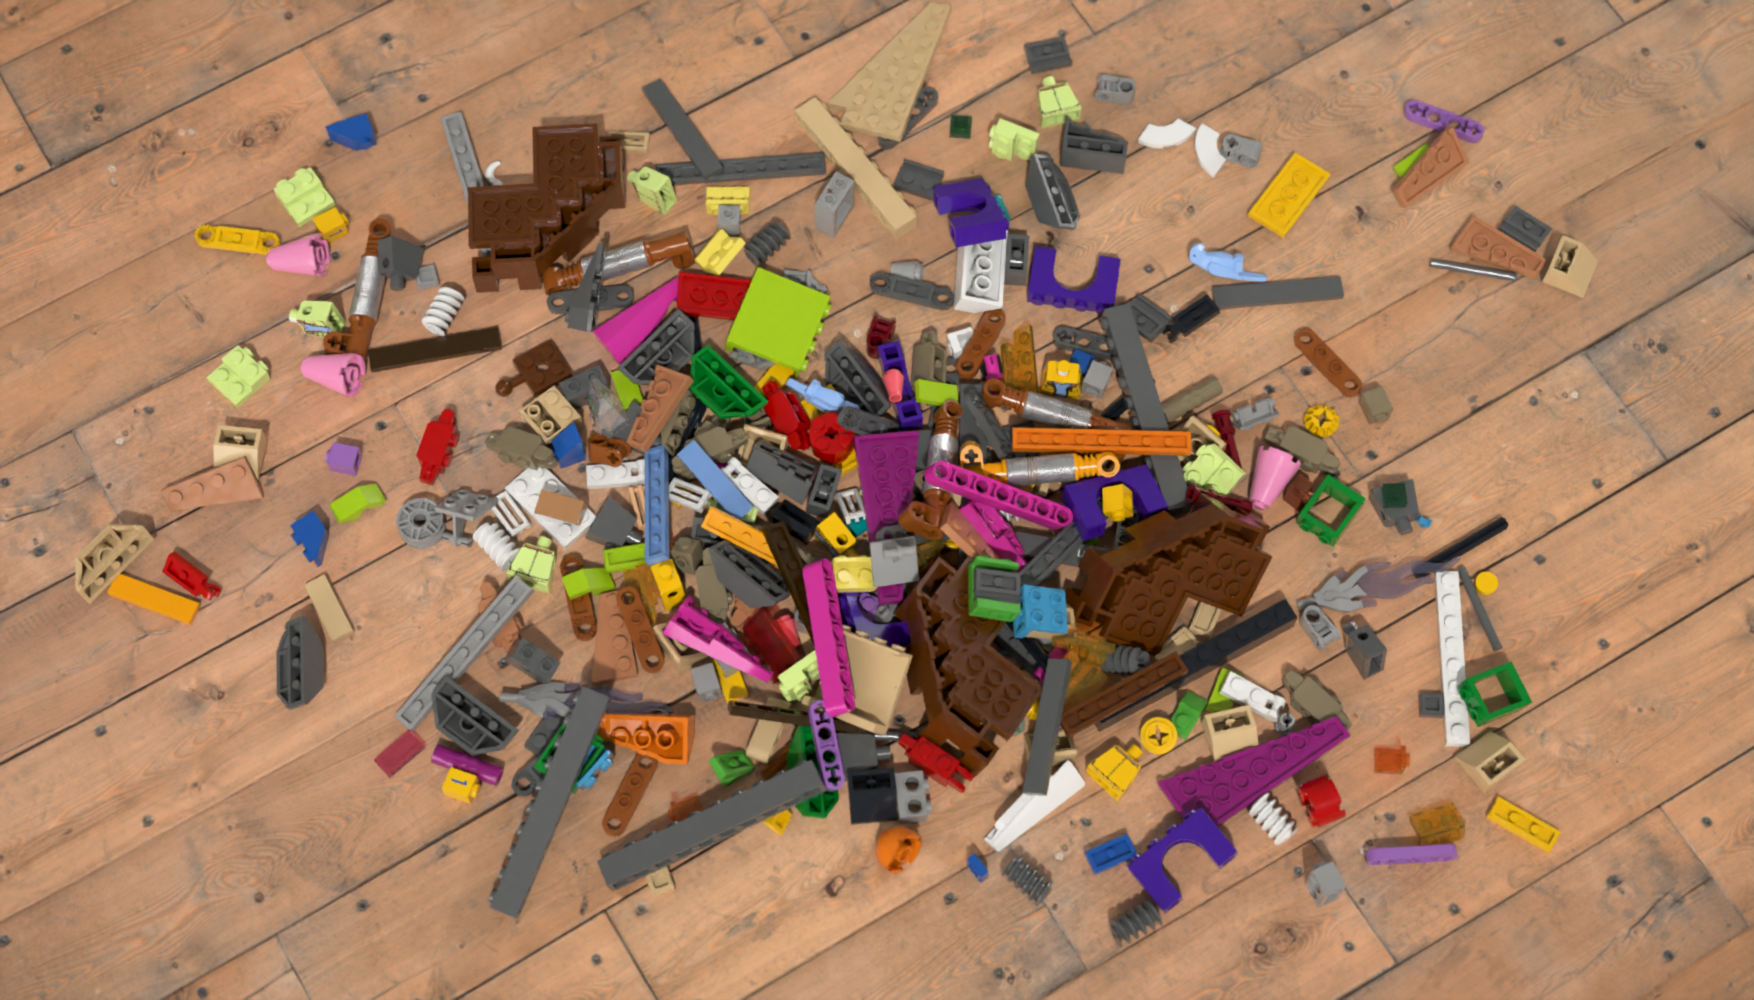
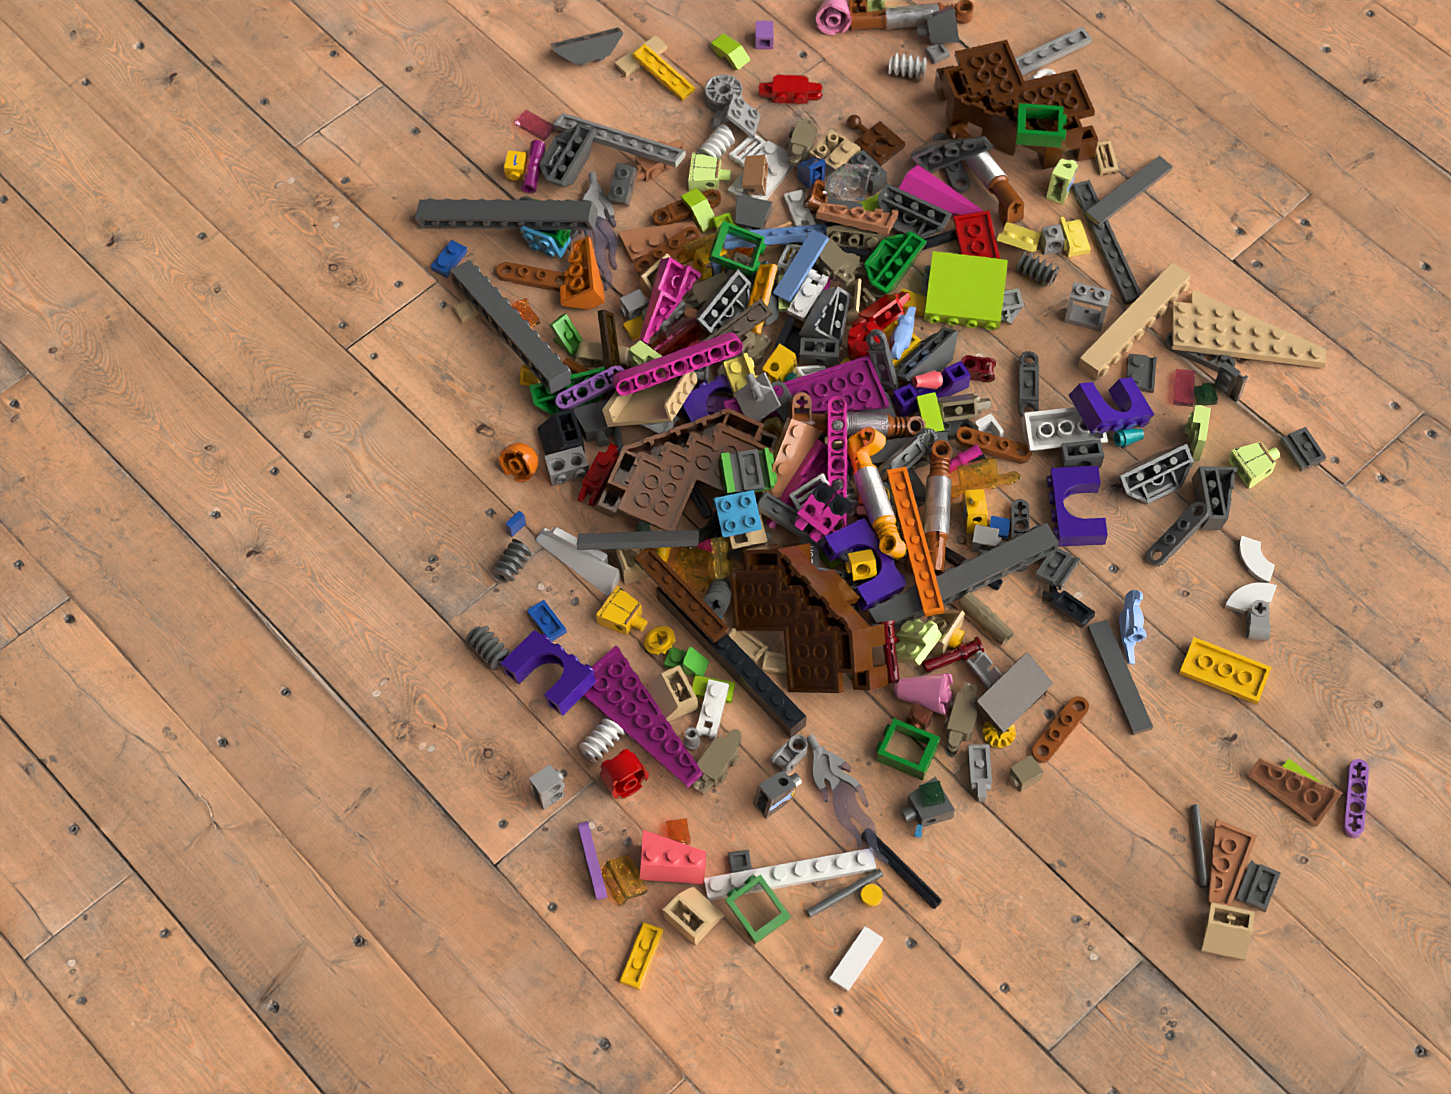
camera: 80 degrees right, 5 degrees down
(312, 535) = (694, 30): blue slope -> none
(365, 586) = (663, 72): none -> yellow tile
(434, 349) = (876, 72): dark brown tile -> none
(577, 890) = (449, 258): none -> blue plate
(603, 199) = (1040, 138): none -> green window
(671, 557) = (727, 228): none -> green window
(909, 270) = (1047, 379): light grey cone -> none
(946, 144) = (1184, 387): none -> clear pink tile
(958, 95) = (1230, 381): none -> dark grey plate
(1017, 533) = (814, 481): none -> white tile
(1055, 522) = (820, 517): none -> dark pink hips
(1115, 89) = (1285, 505): light grey piece -> none
(1131, 193) = (1178, 534): none -> dark grey plate
(1288, 393) = (1013, 693): none -> tile
(1364, 448) = (980, 770): none -> light grey hinge
(1426, 773) = (670, 860): none -> coral wedge
(1553, 613) = (856, 959): none -> white tile

